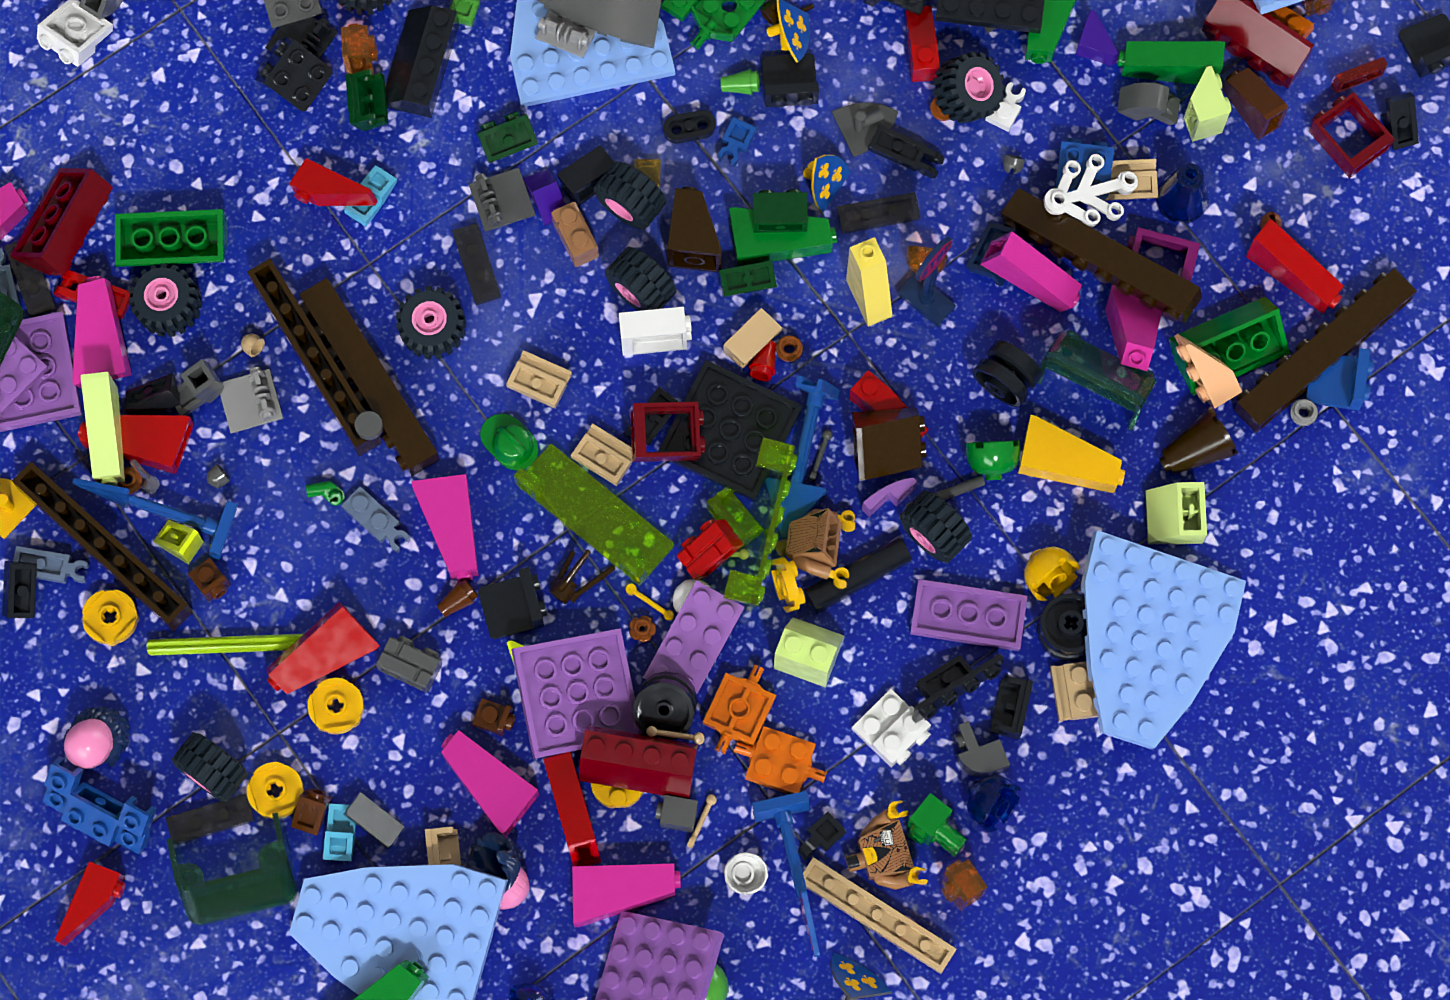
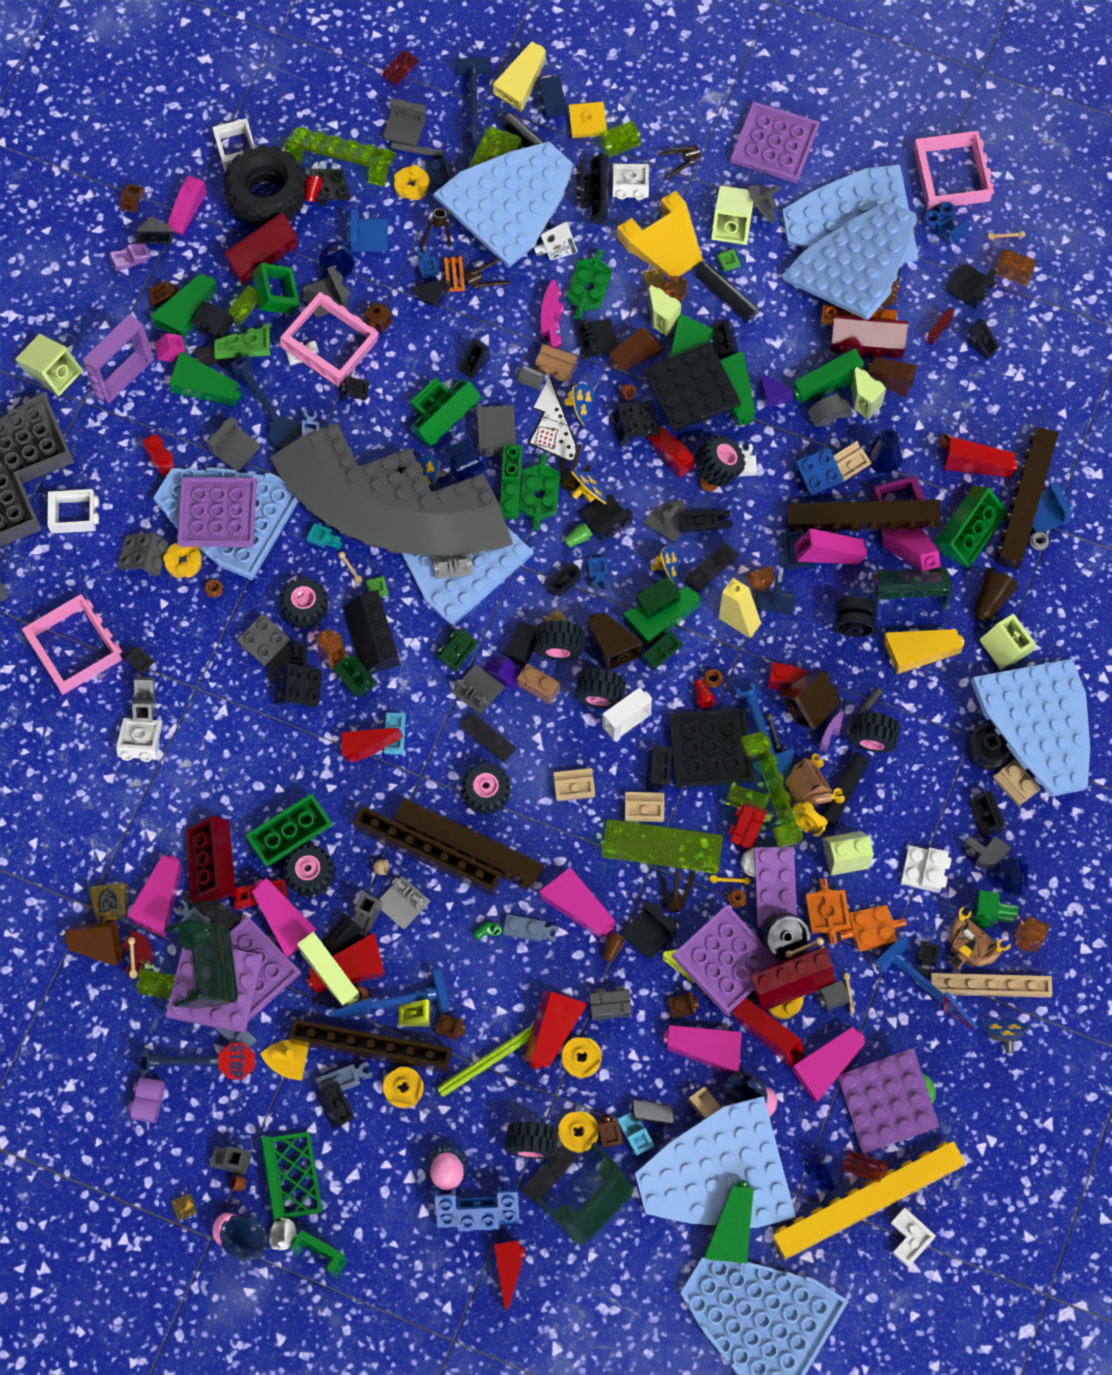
camera: 30 degrees left, 5 degrees down
(151, 483) = (374, 989): clear hand -> none
(217, 477) = (413, 961): dark grey hinge -> none
(368, 425) = (493, 871): dark grey tile -> none
(509, 441) = (579, 833): green piece -> none
(638, 433) = (661, 779): dark red window -> none
(745, 873) = (898, 1006): white hair -> none
(751, 338) = (688, 685): tan hinge -> none
(950, 681) = (942, 820): black bracket -> none
(968, 615) = (925, 774): medium lavender plate -> none
(993, 457) = (878, 672): green cylinder -> none
(1012, 161) = (773, 492): dark grey hinge -> none
(1050, 572) = (957, 719): yellow cylinder -> none
(1088, 193) = (833, 483): white plant -> none
(1213, 377) = (976, 550): light nougat slope -> none
(1382, 138) = (963, 350): dark red window -> none

